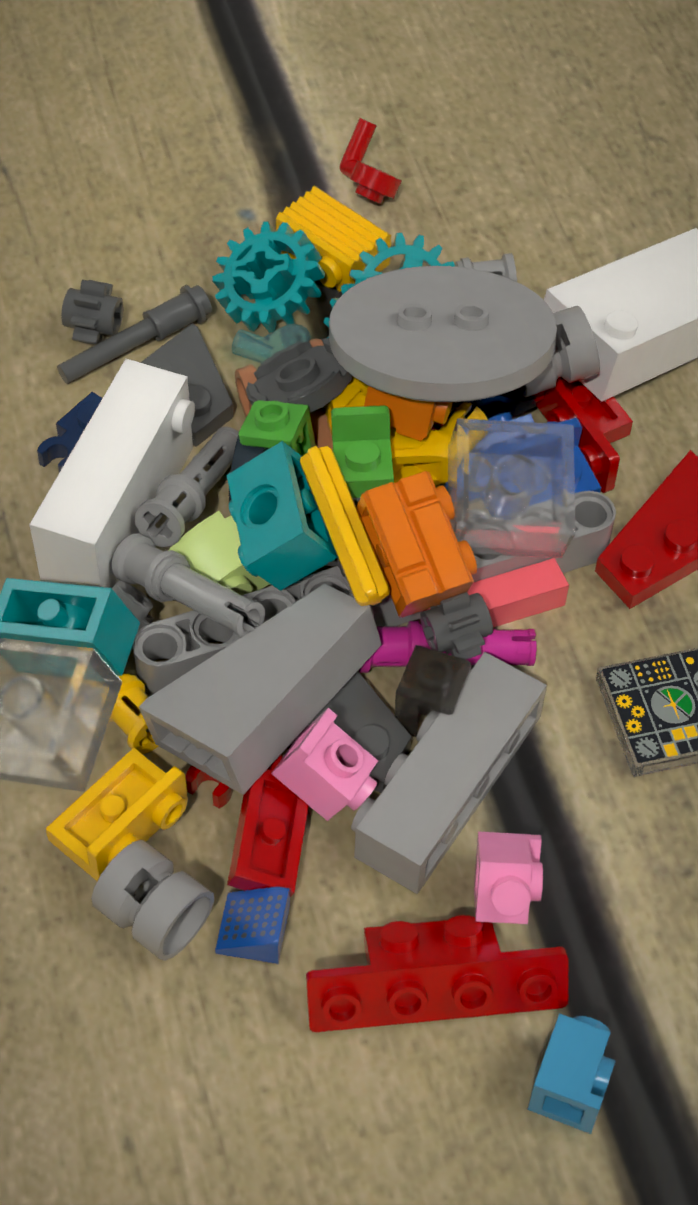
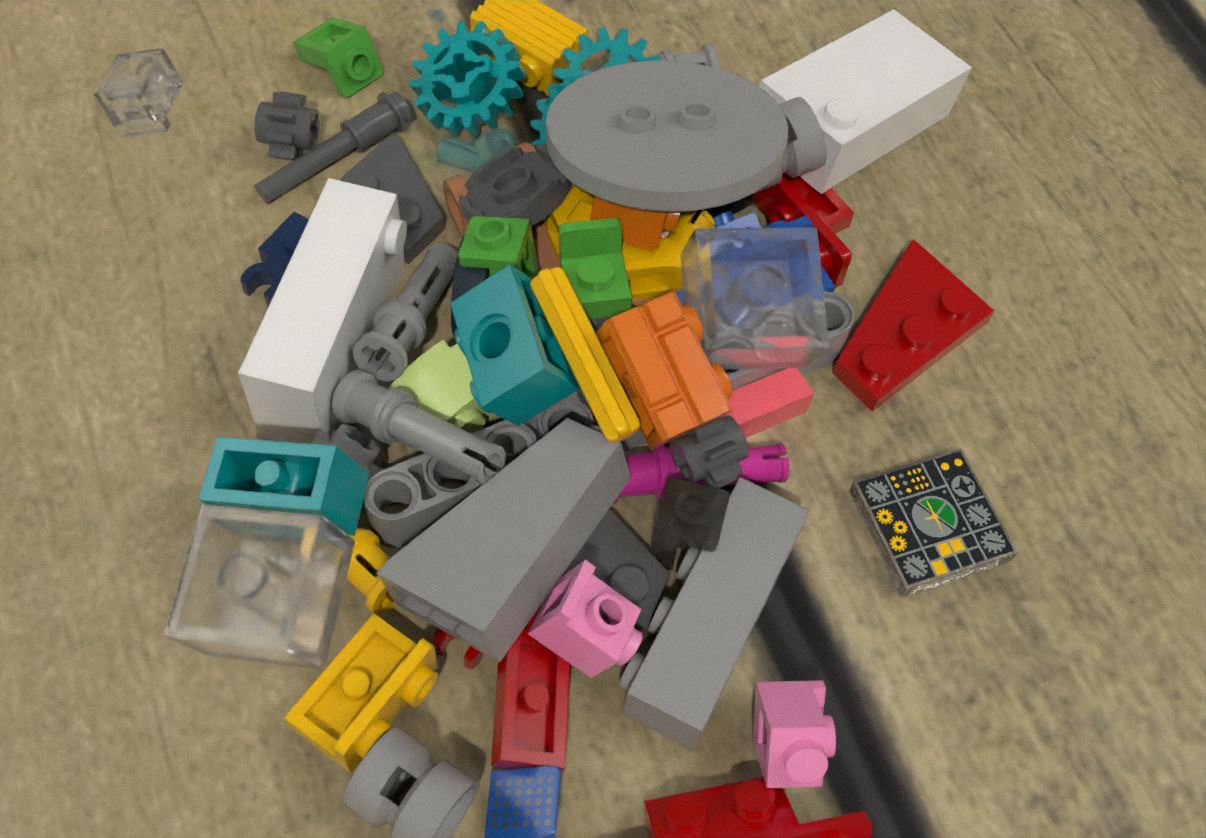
camera: 10 degrees left, 5 degrees up
(152, 246) = (344, 52): none -> bright green bracket

